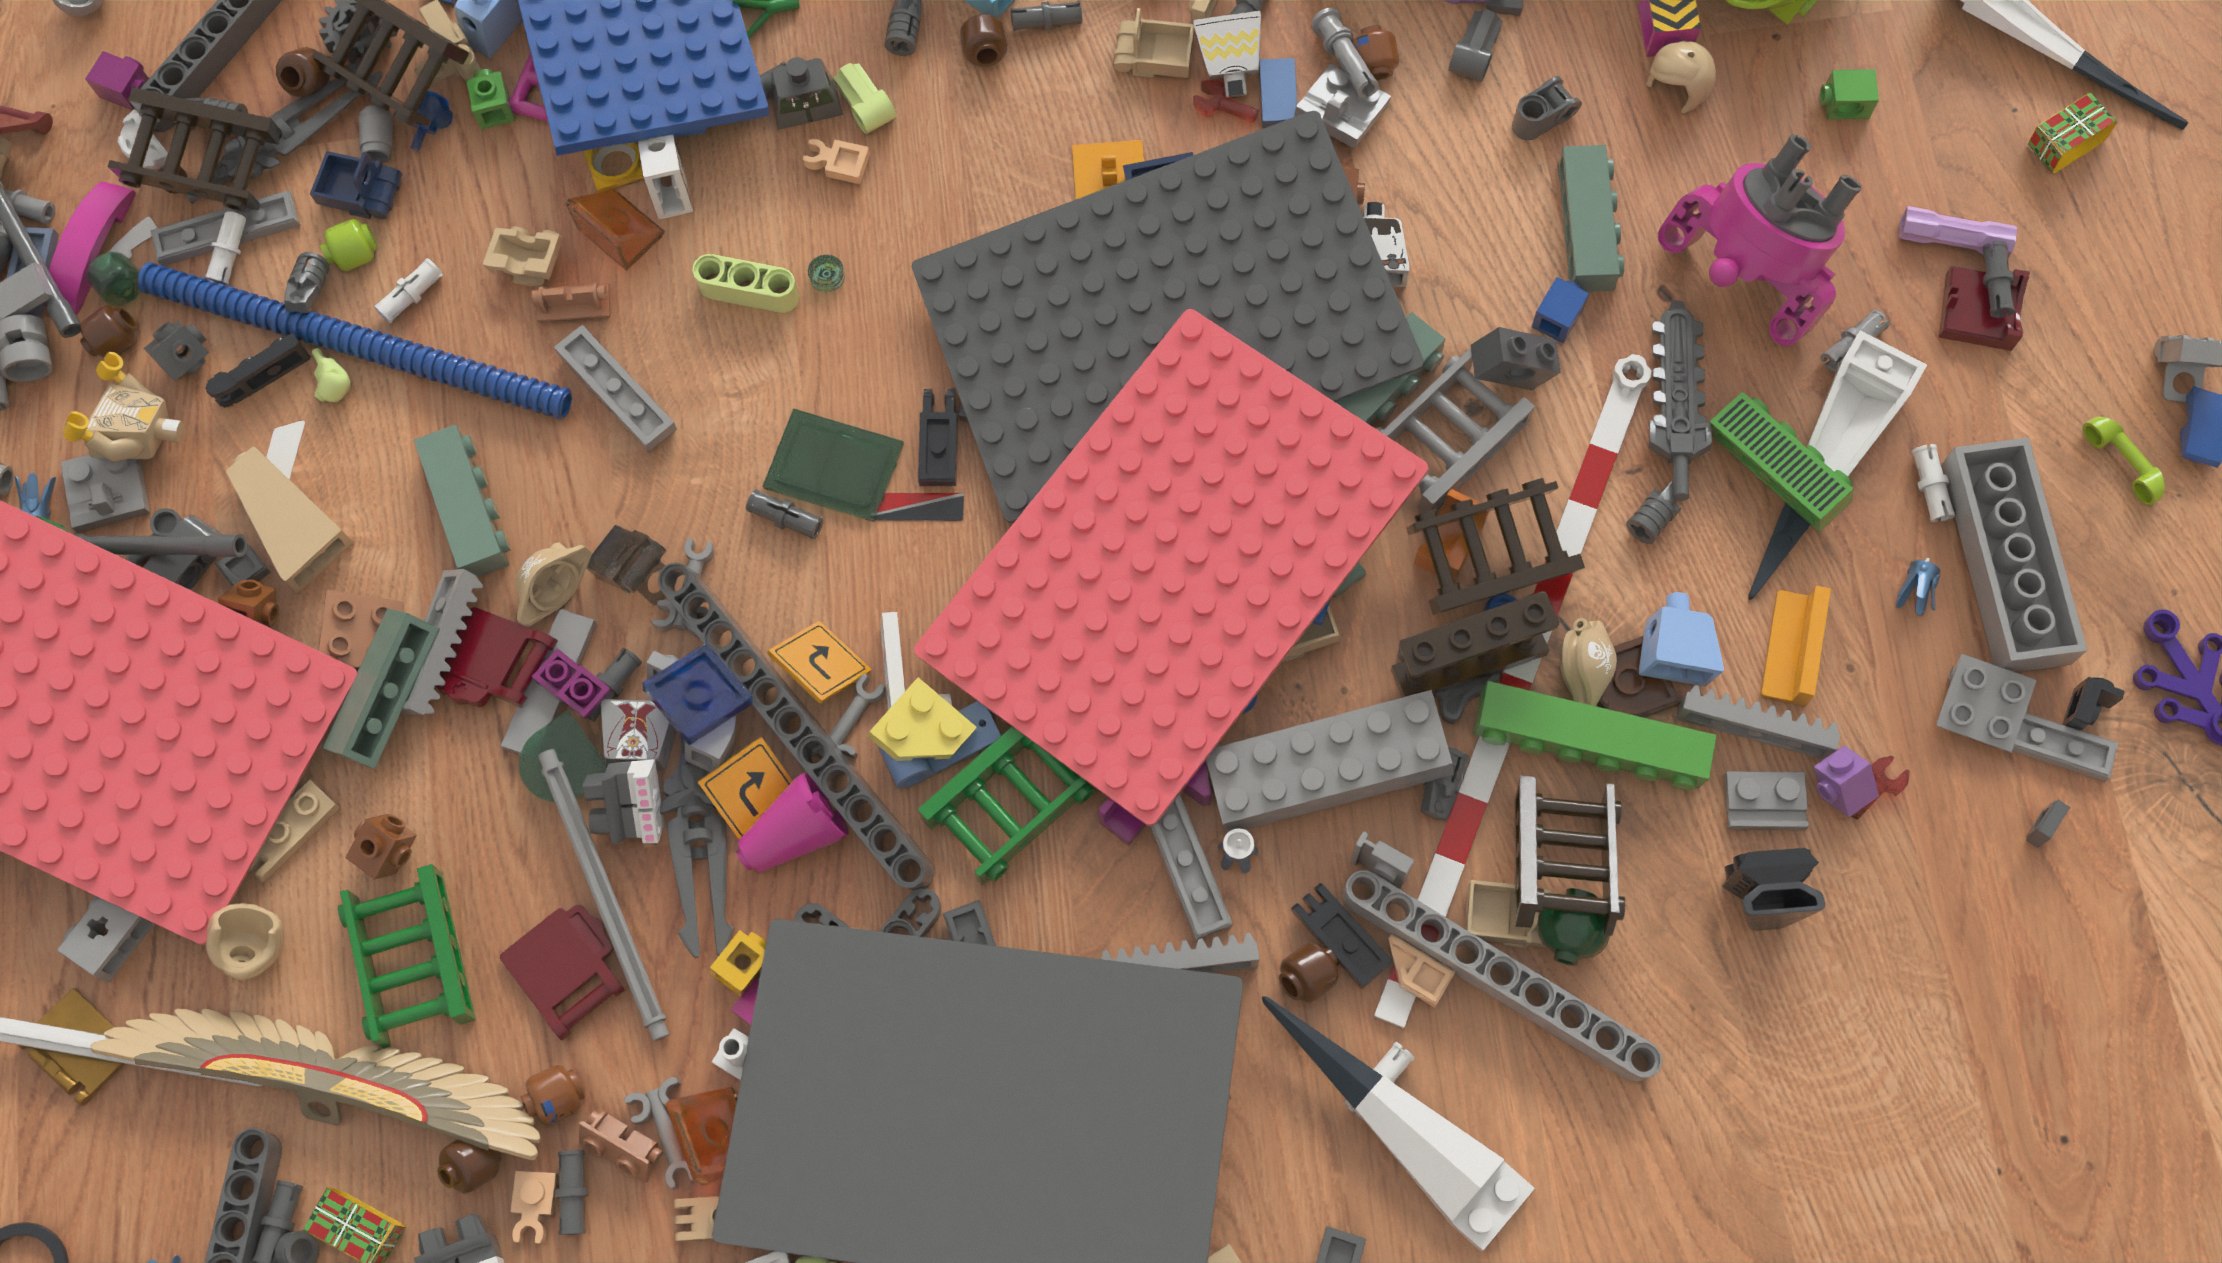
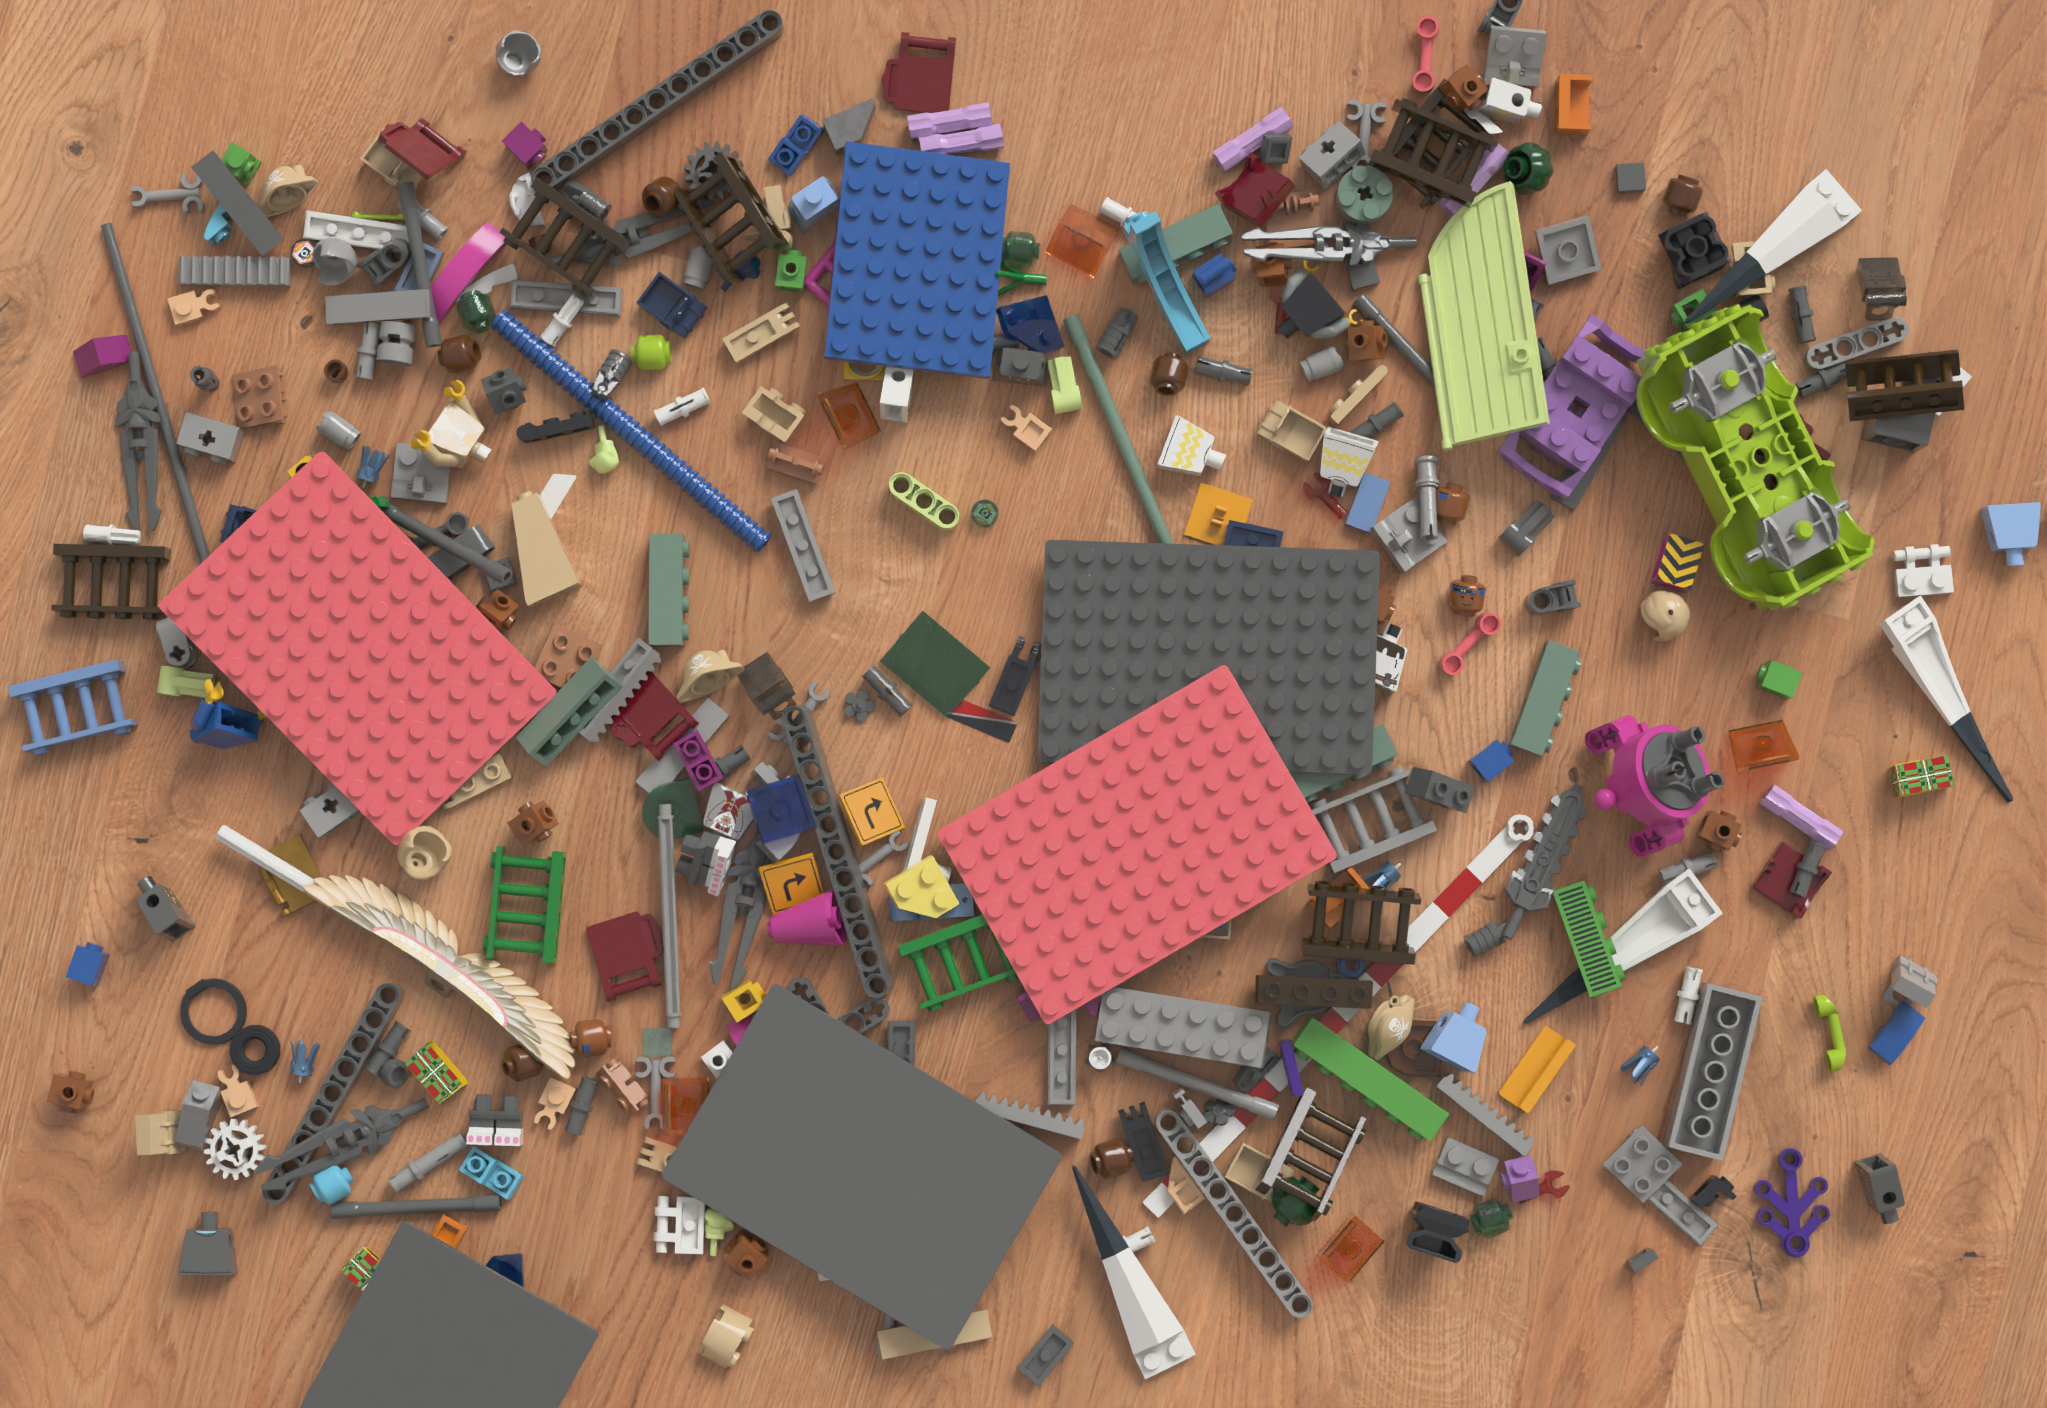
camera: 15 degrees right, 15 degrees up
(476, 176) = (760, 333): none -> tan hinge
(646, 1066) = (657, 1041): none -> clear light blue tile
(756, 547) = (859, 705): none -> dark grey plant
(796, 39) = (1031, 324): none -> clear blue plate
(862, 46) = (1079, 339): none -> sand green piece
(1041, 110) = (1189, 449): none -> white torso
(1424, 856) = (1218, 1111): none -> dark grey plant
(1442, 142) = (1466, 596): none -> dark orange head
(1461, 827) = (1141, 1063): none -> light grey piece
(1478, 168) = (1486, 623): none -> coral bar
(1489, 760) = (1291, 1067): none -> dark purple tile
(1495, 481) = (1386, 875): none -> flat silver piece
(1670, 961) = (1350, 1248): none -> clear orange slope
(1834, 848) = (1491, 1218): none -> clear green head
(1870, 280) = (1709, 831): none -> dark orange brick
(1879, 169) = (1762, 746): none -> clear orange slope

